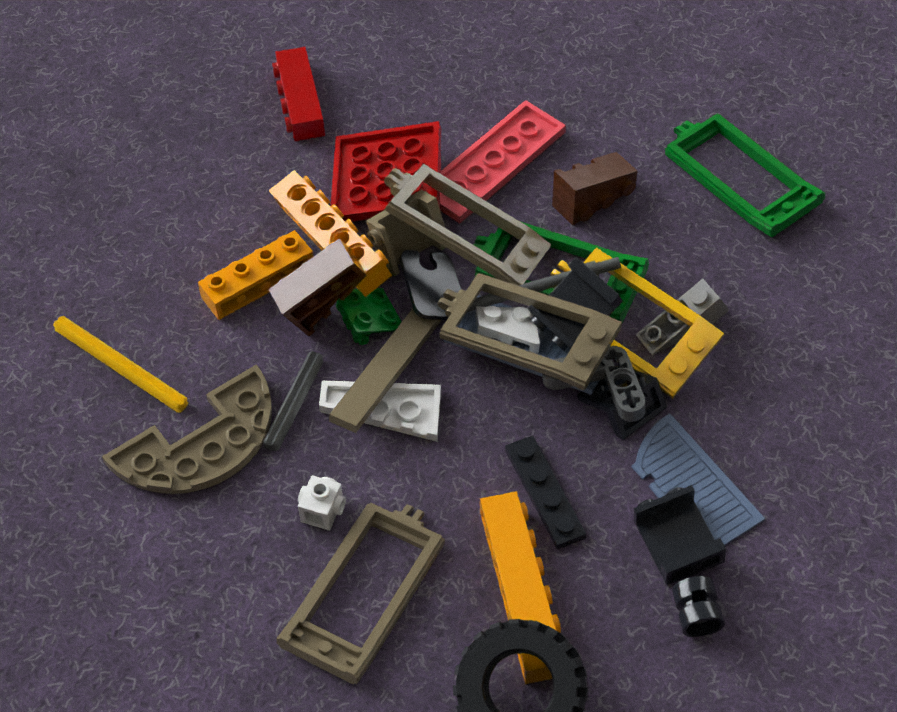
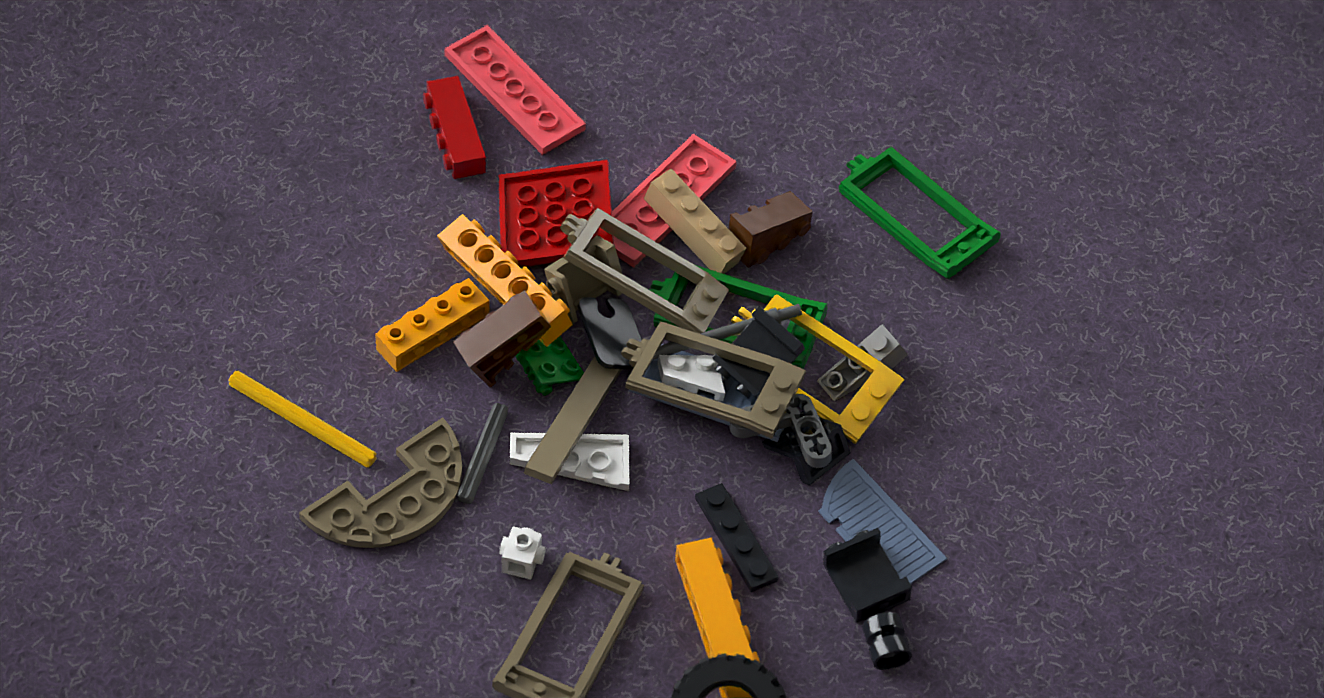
camera: 10 degrees left, 0 degrees up
(360, 61) = (515, 89): none -> coral plate
(520, 180) = (694, 222): none -> tan brick

